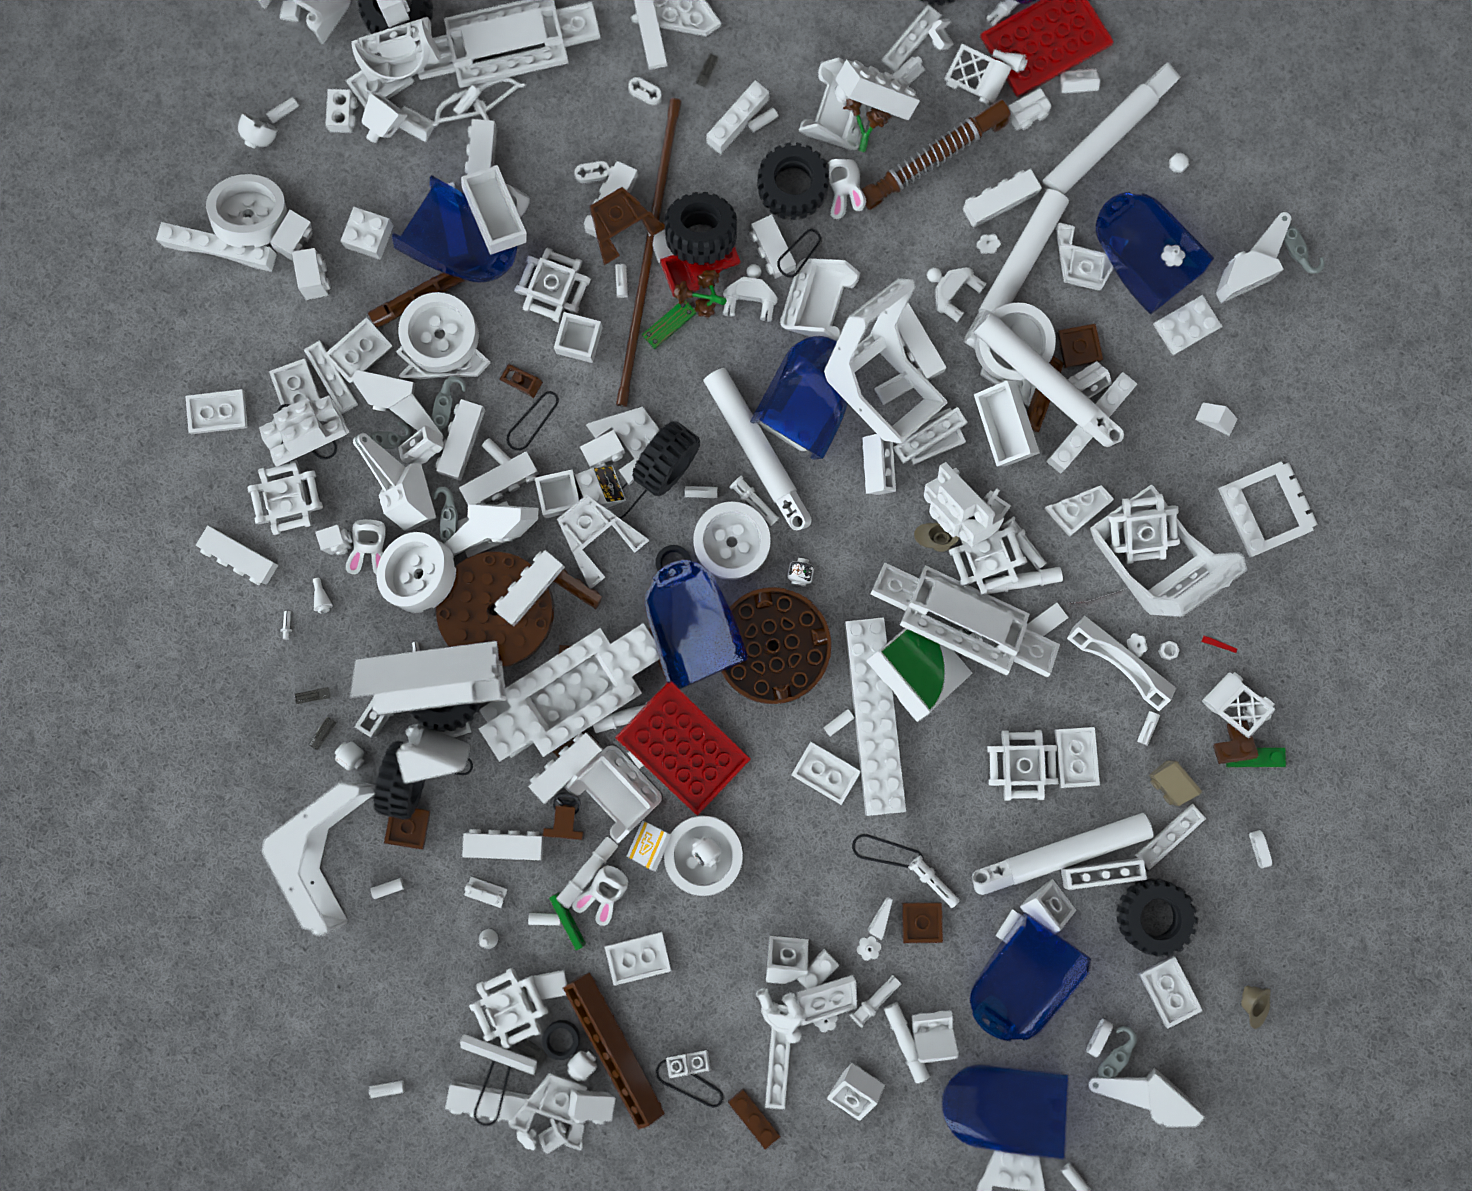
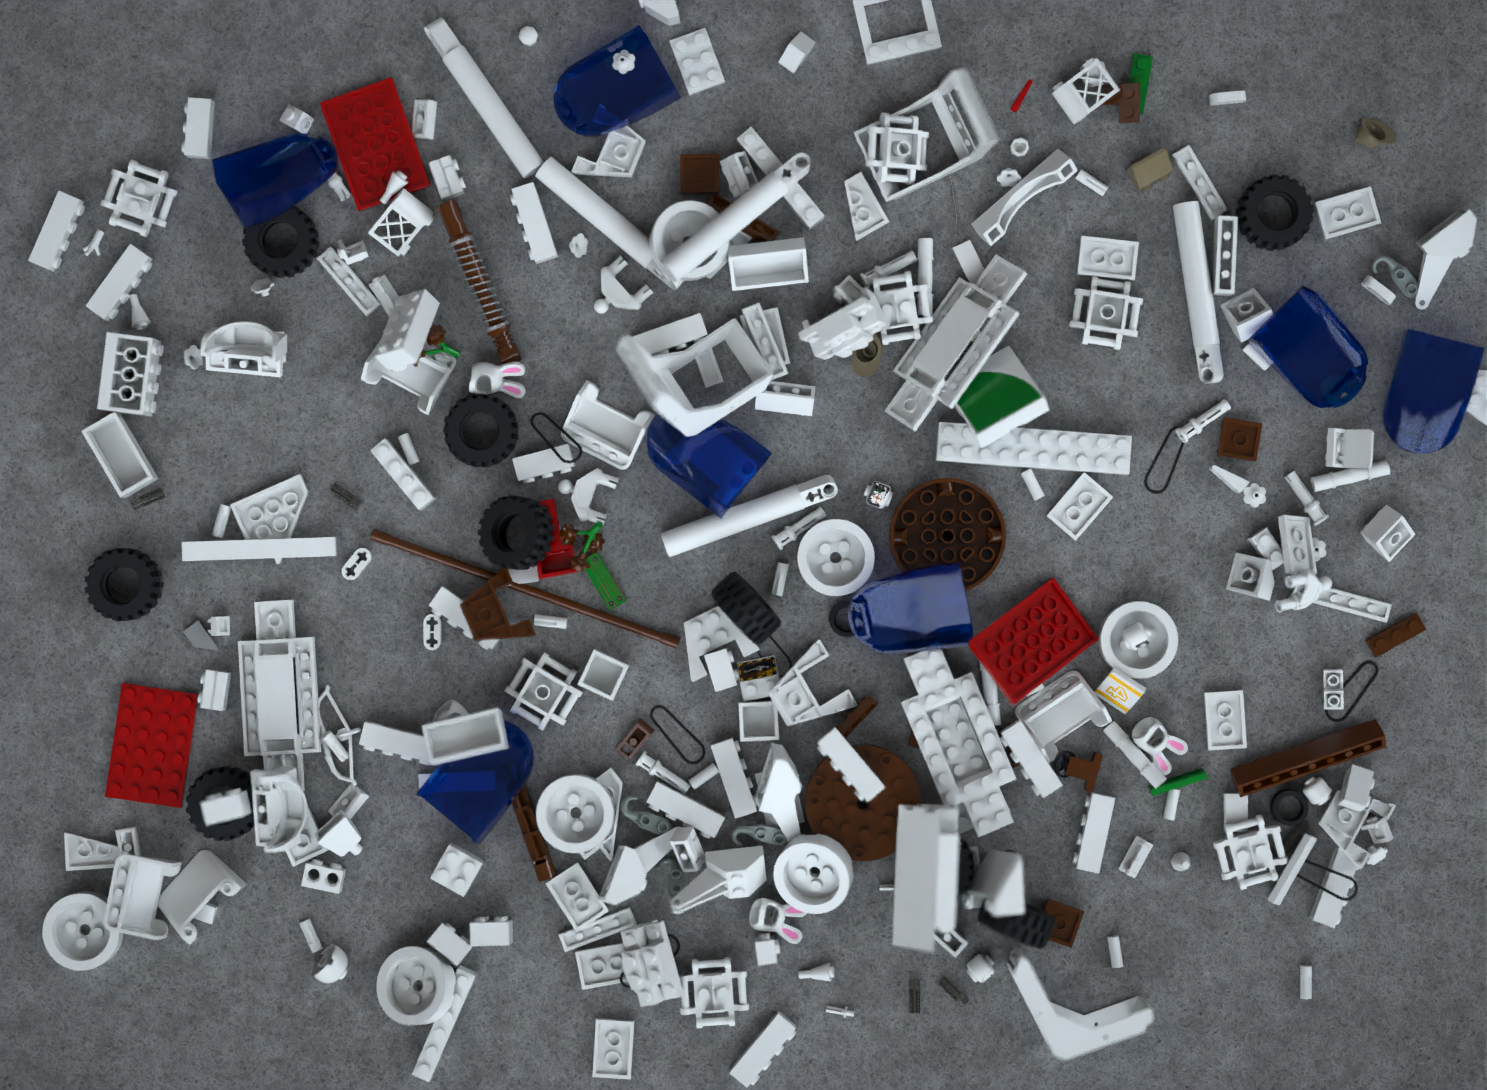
camera: 80 degrees left, 5 degrees up
(496, 403) = (655, 768): none -> white pin

